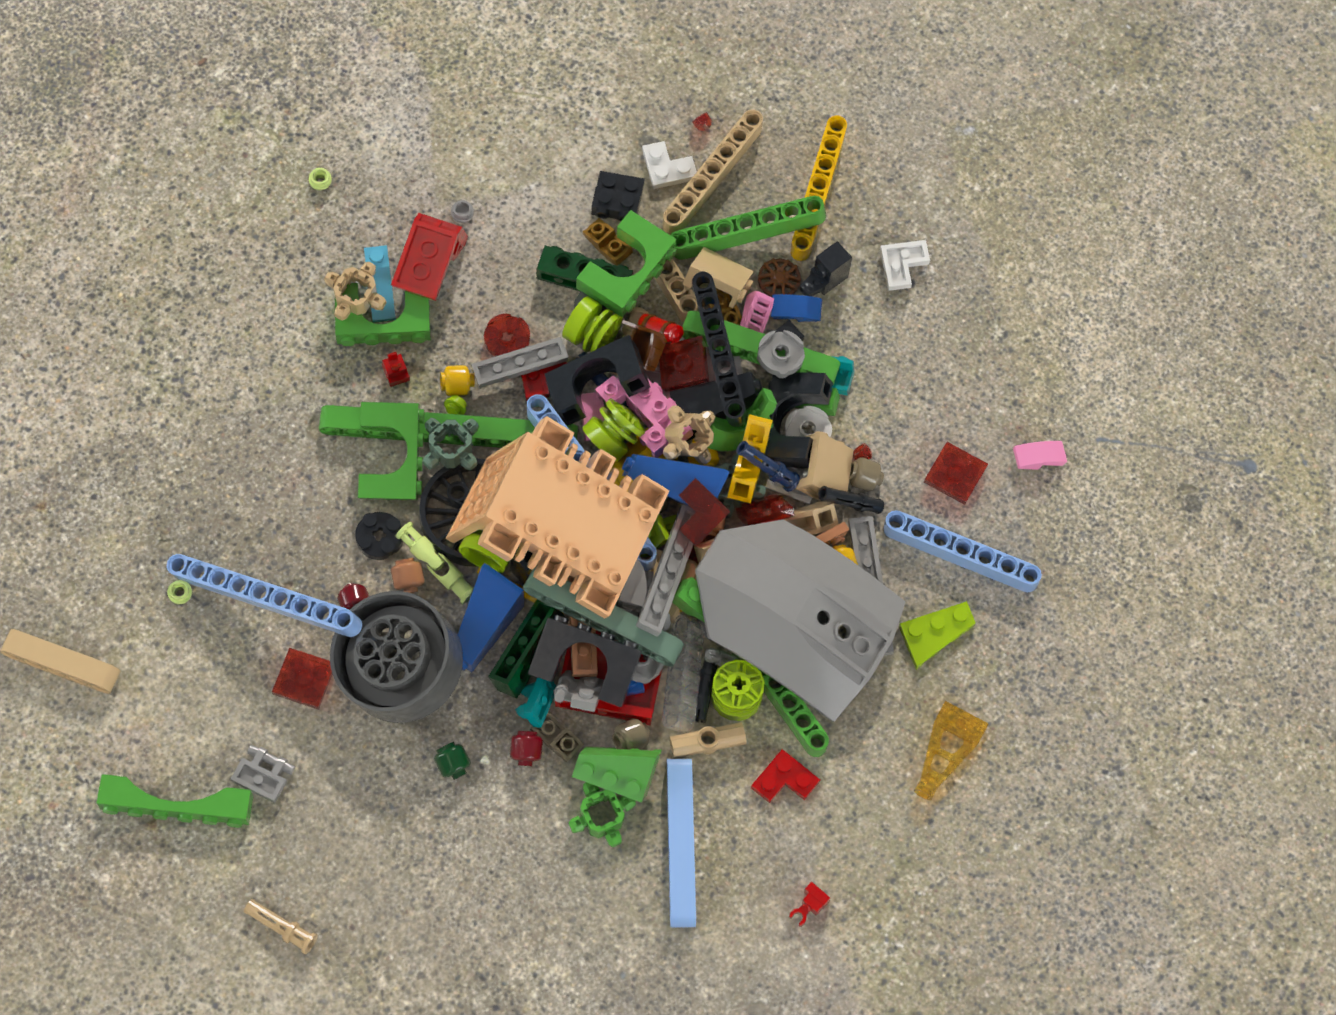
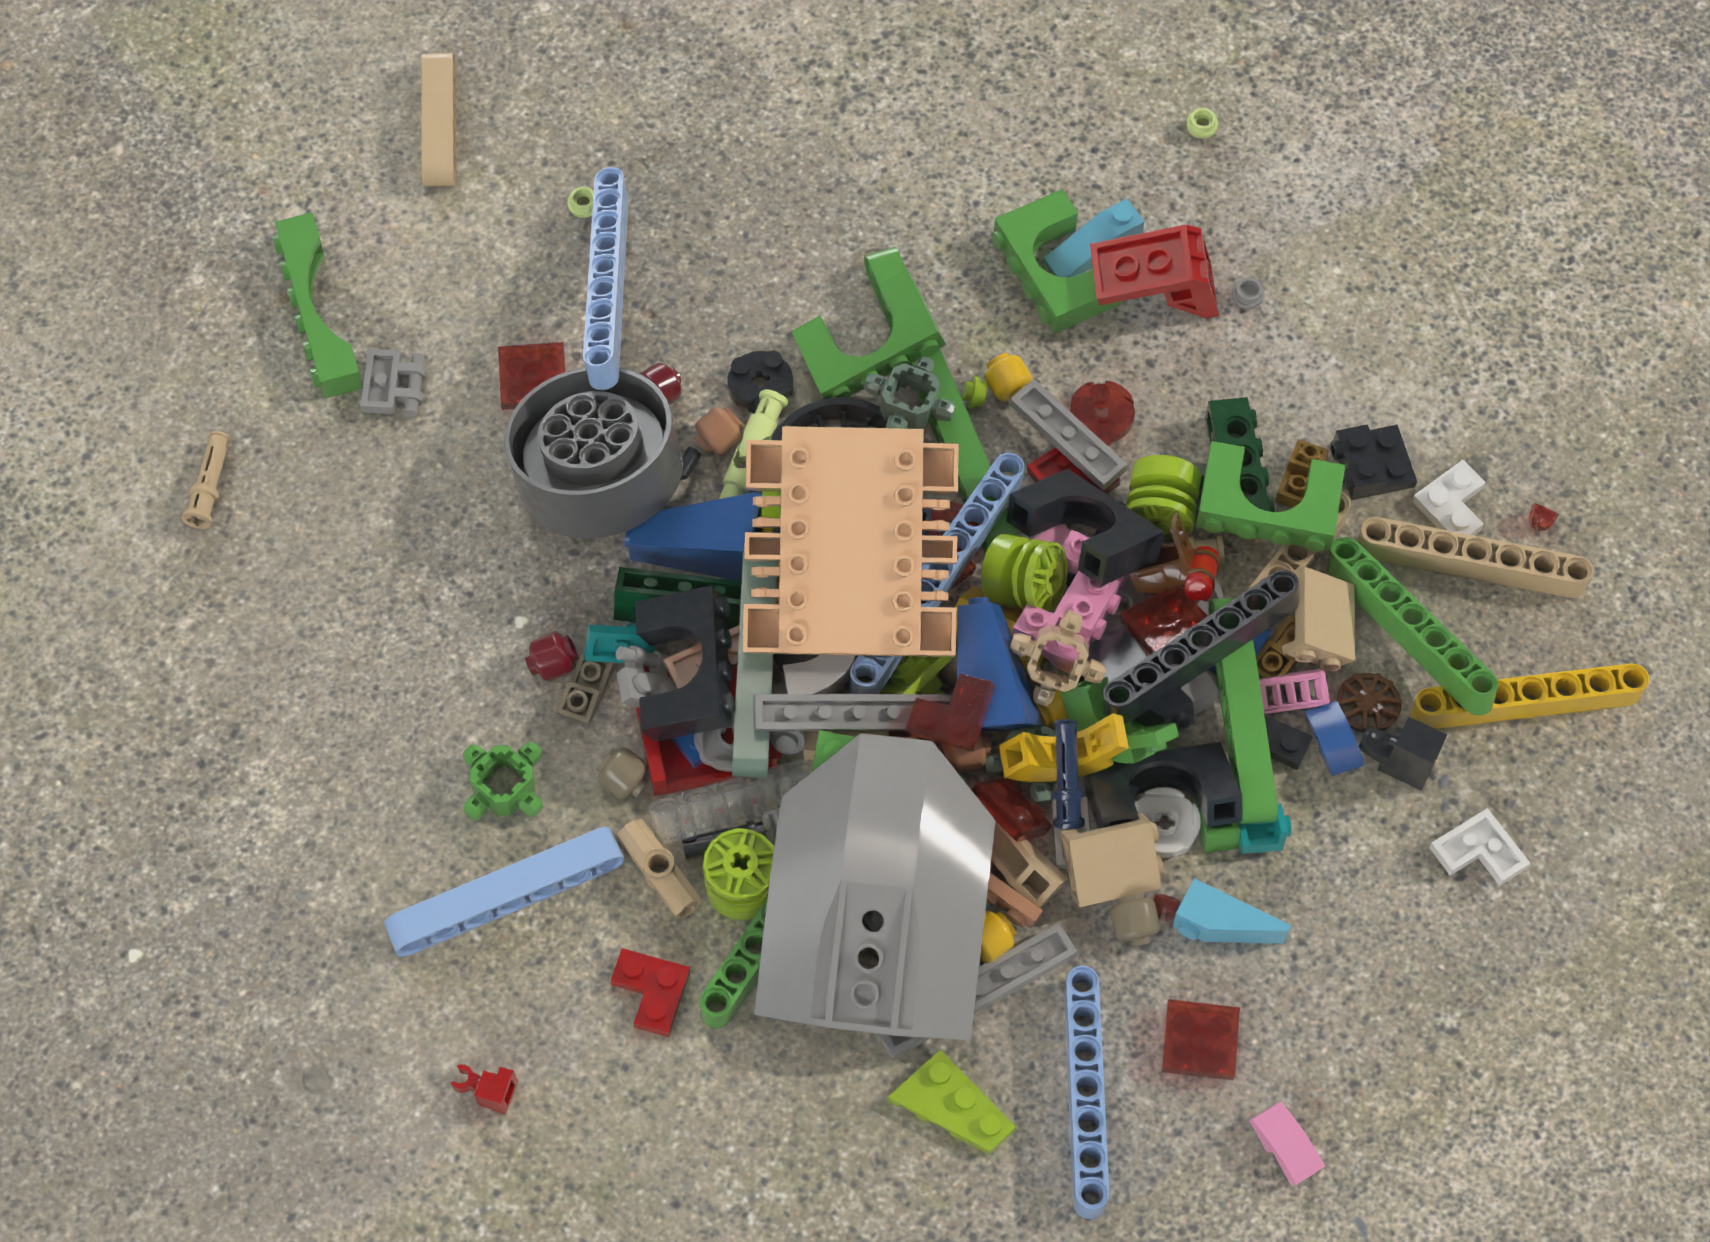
camera: 70 degrees right, 5 degrees down
(365, 278) = (1061, 190): tan piece -> none
(395, 369) = (989, 306): red piece -> none
(452, 760) = (497, 579): dark green head -> none
(618, 770) = (563, 772): bright green wedge -> none
(781, 365) = (1258, 720): light grey plate -> none
(859, 501) = (1087, 924): black pin -> none
(882, 427) = (1219, 917): none -> medium azure slope
(960, 724) = (832, 1187): clear yellow plate -> none

